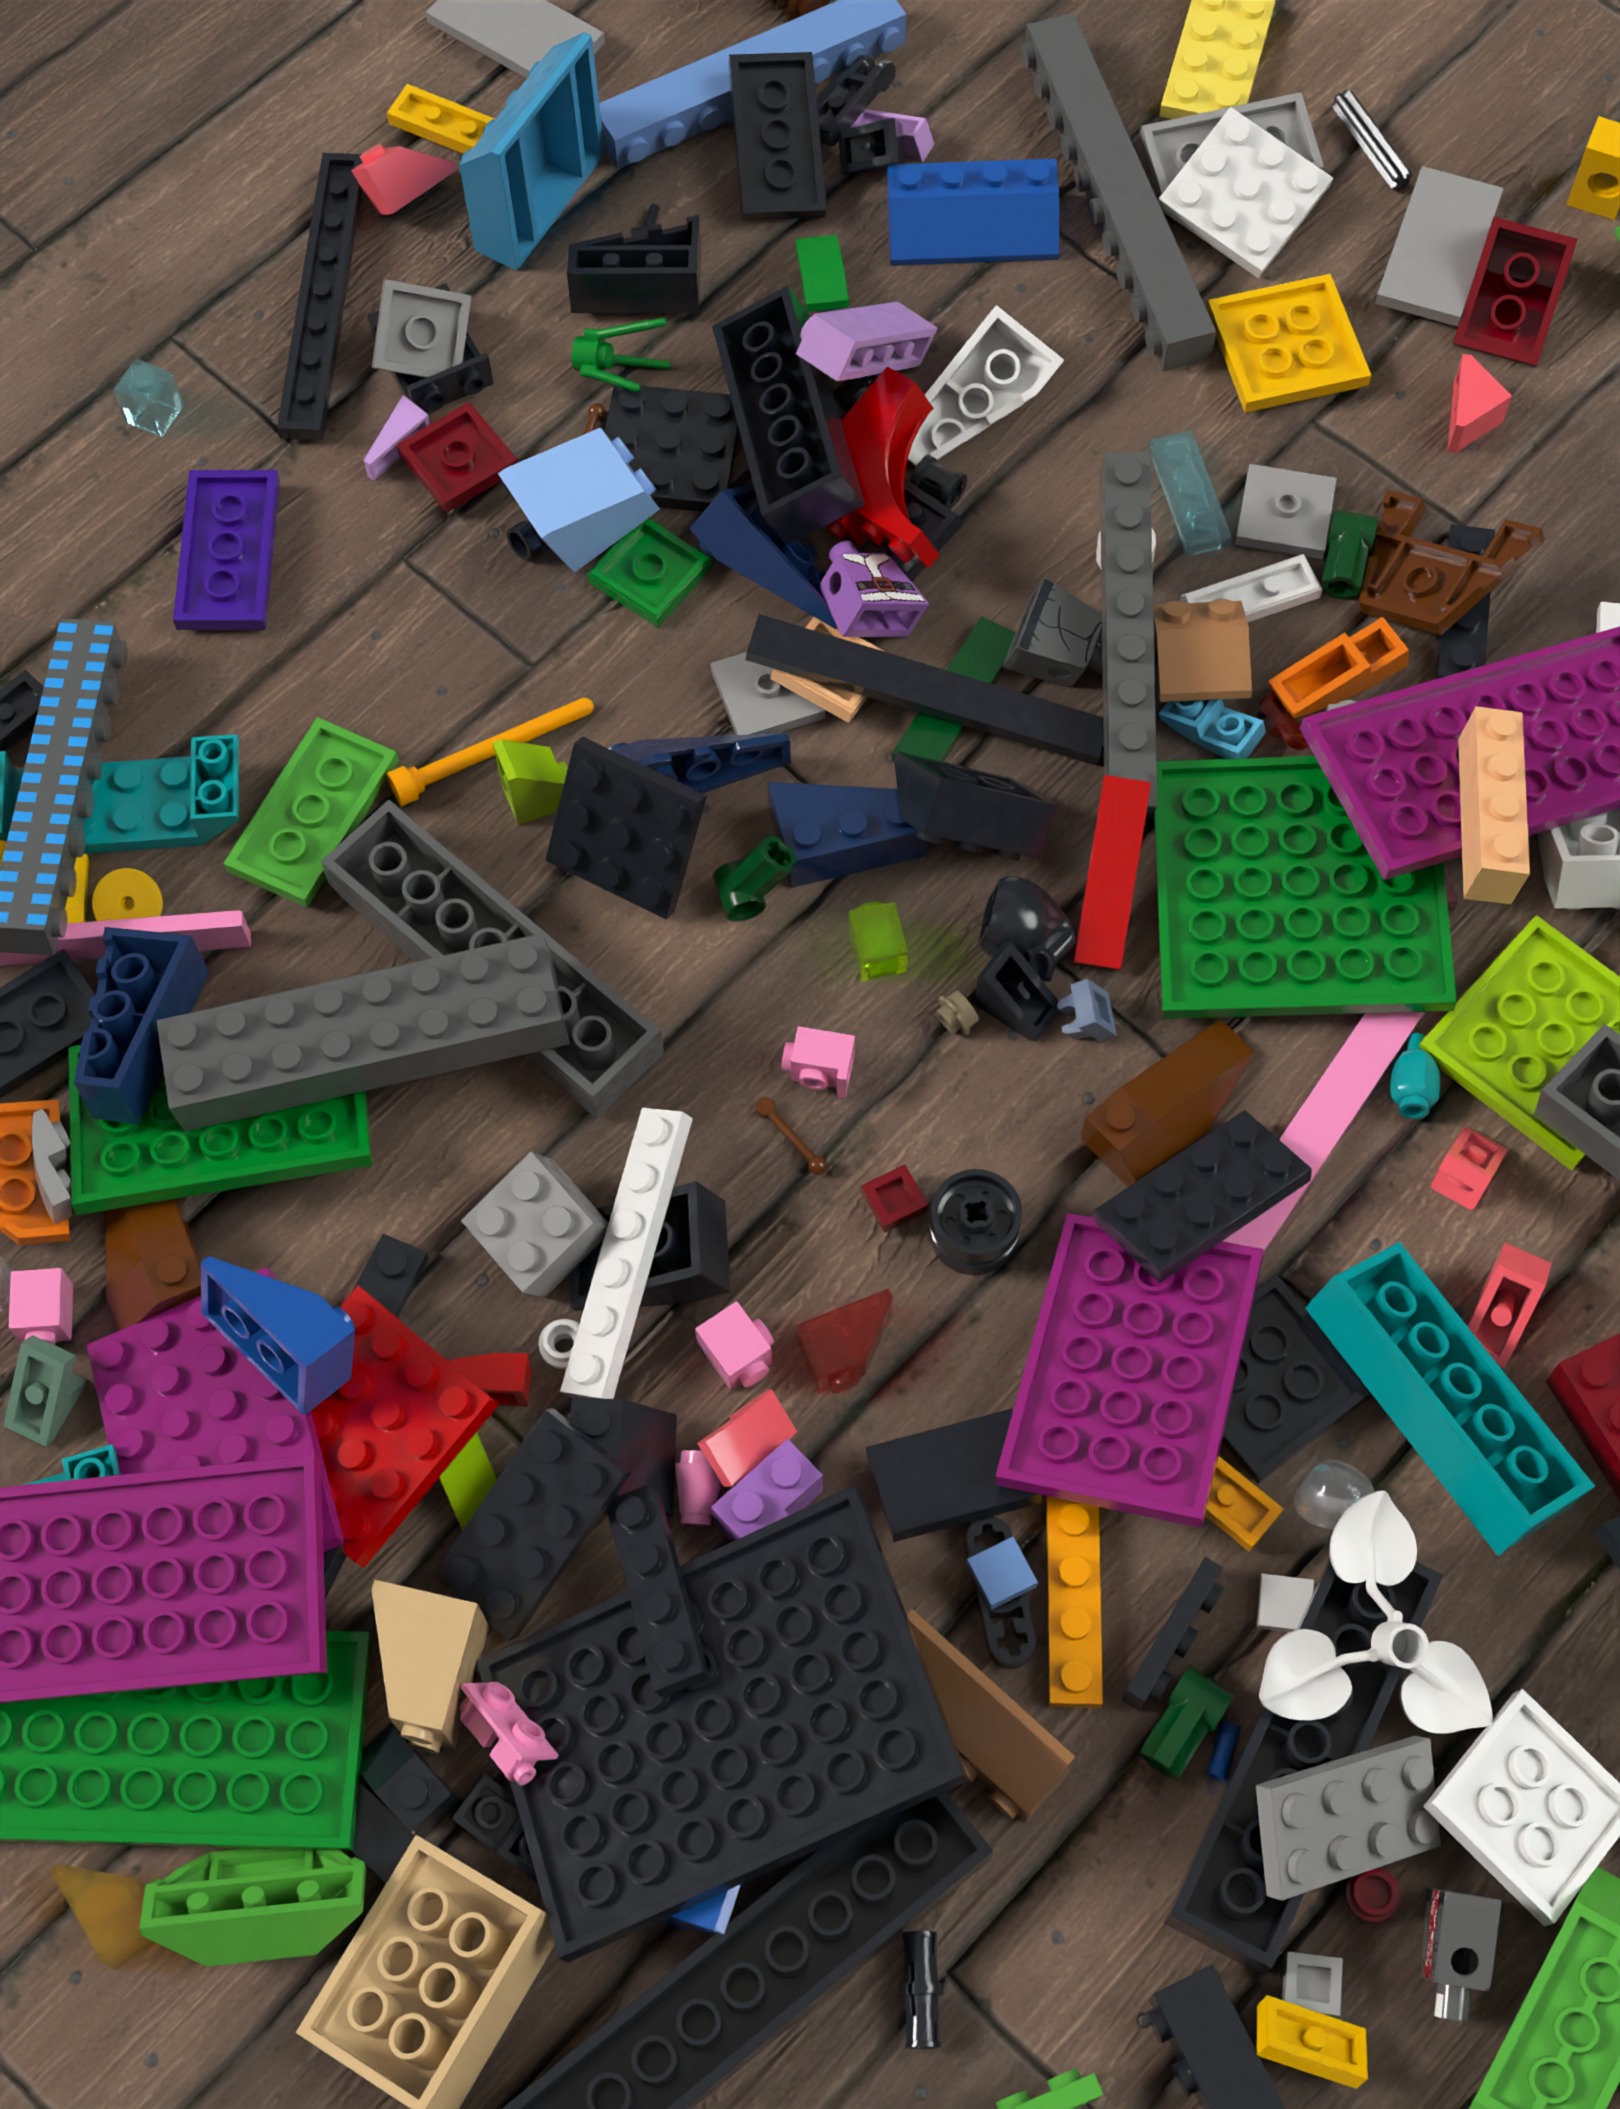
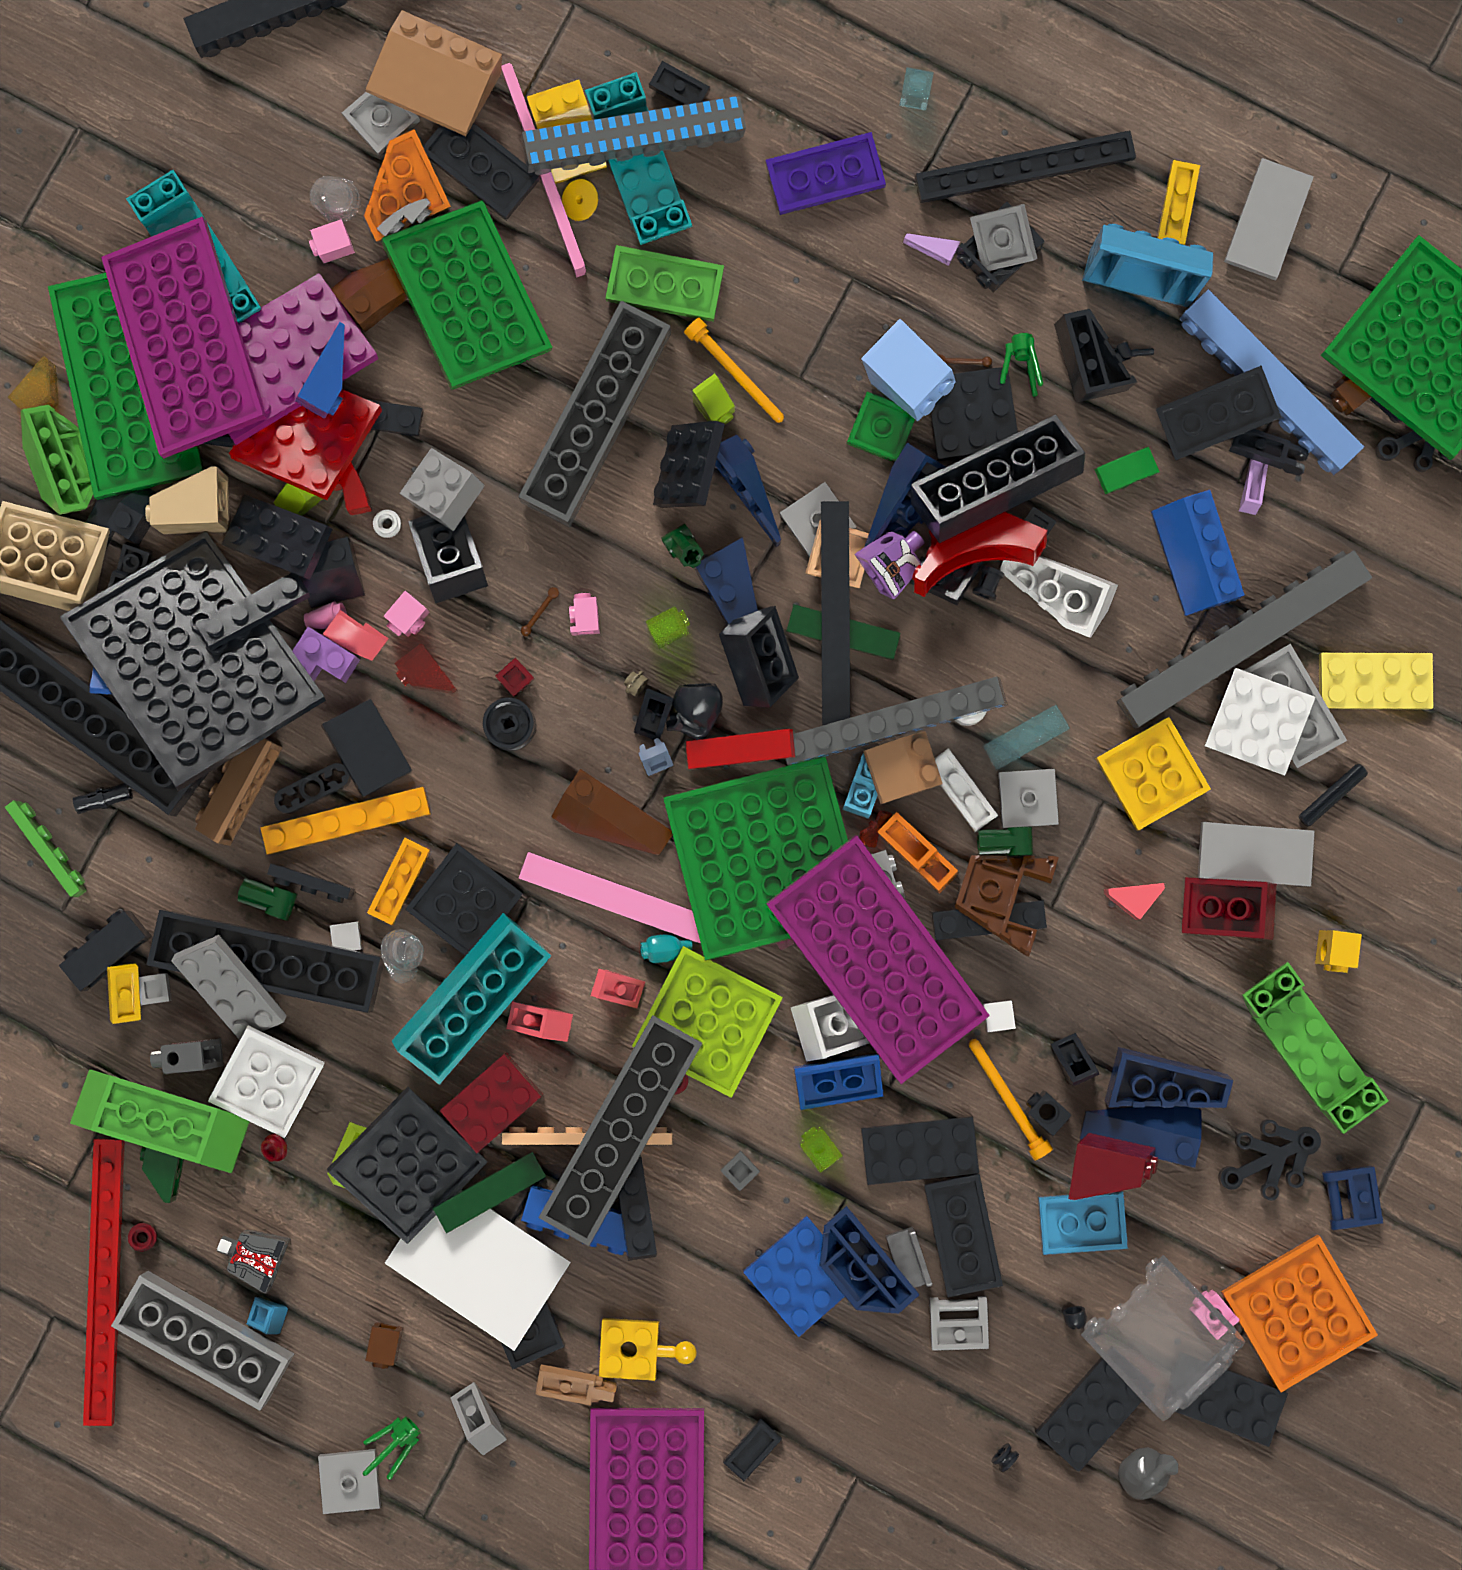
camera: 70 degrees right, 20 degrees up
(42, 1390) = (286, 260): sand green slope -> none
(140, 982) = (499, 232): dark blue wedge -> none
(361, 1032) = (516, 360): dark grey brick -> none
(398, 176) = (1124, 186): coral slope -> none
(456, 457) = (927, 288): dark red plate -> none
(493, 1713) = (170, 555): bright pink hinge -> none
(626, 1254) = (436, 542): white plate -> none
(865, 340) = (1061, 512): lavender brick -> none
(871, 146) = (1228, 478): black slope -> none
(1001, 1573) = (317, 786): medium blue tile -> none
(1056, 637) = (893, 678): dark grey torso -> none
(1130, 1377) = (444, 827): magenta plate -> none
(1202, 1196) = (555, 844): black plate -> none
(1223, 1751) = (261, 921): blue piece -> none
(1307, 1678) = (310, 1023): white plant -> none
(1372, 1895) = (204, 1013): dark red plate -> none
(1493, 806) = (822, 955): light nougat brick -> none

